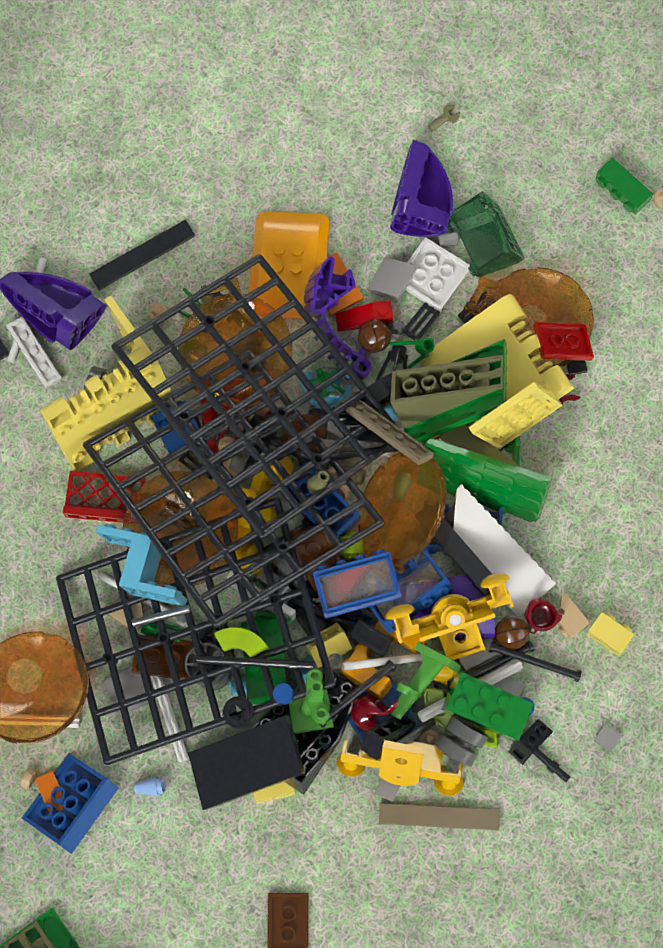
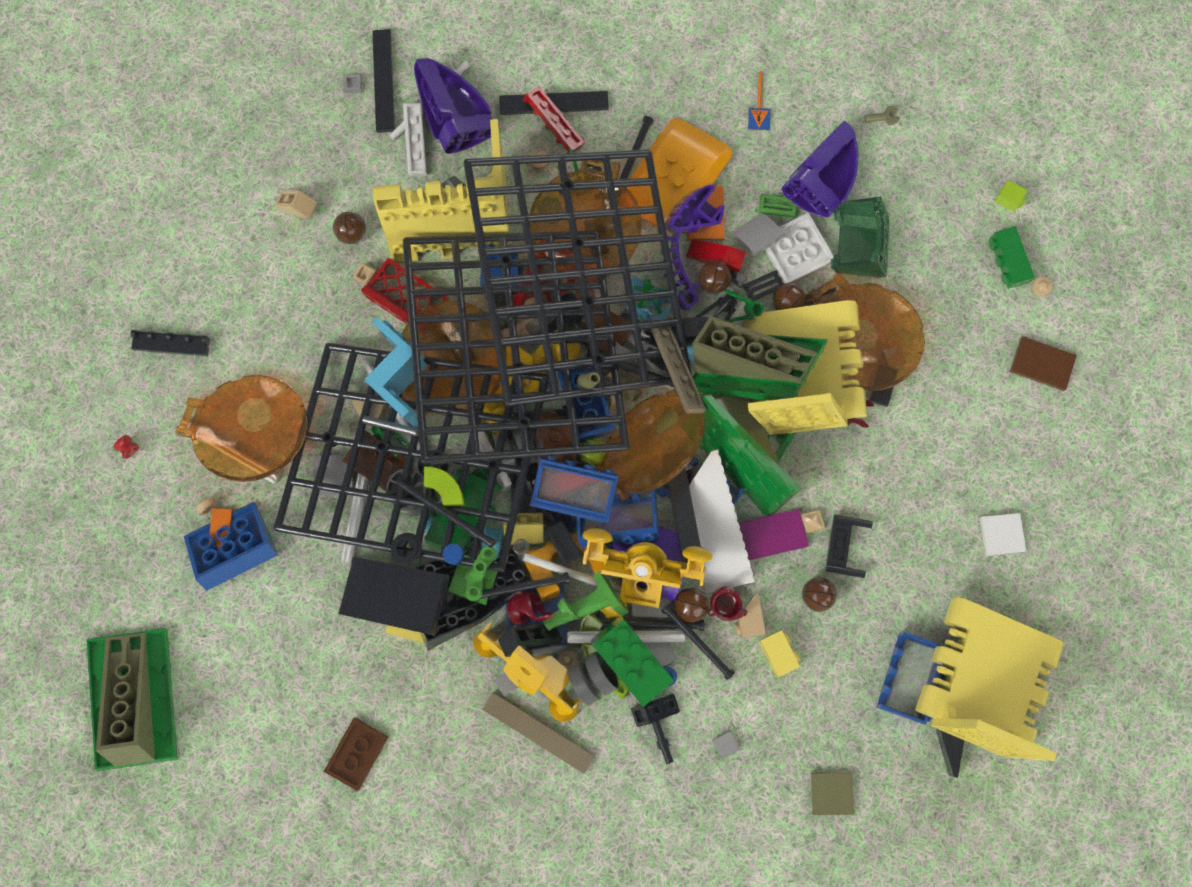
camera: 25 degrees right, 5 degrees up
(19, 462) = (349, 227): none -> reddish brown piece
(56, 496) = (364, 274): none -> tan tile
(152, 270) = (553, 119): none -> hinge
(152, 786) = (305, 569): light blue cone -> none
(236, 228) = (647, 121): none -> black bar
(334, 175) = (759, 118): none -> piece
(396, 251) = (779, 206): none -> bright green tile
(448, 240) = (827, 225): light grey tile -> none
(449, 320) = (789, 296): none -> reddish brown piece
(550, 534) = (773, 534): none -> magenta tile
(563, 341) = (880, 369): red tile -> none
(577, 506) = (812, 521): none -> tan tile
(594, 132) = (1011, 196): none -> lime brick
(611, 512) = (839, 545): none -> black plate
(617, 564) = (819, 594): none -> reddish brown piece

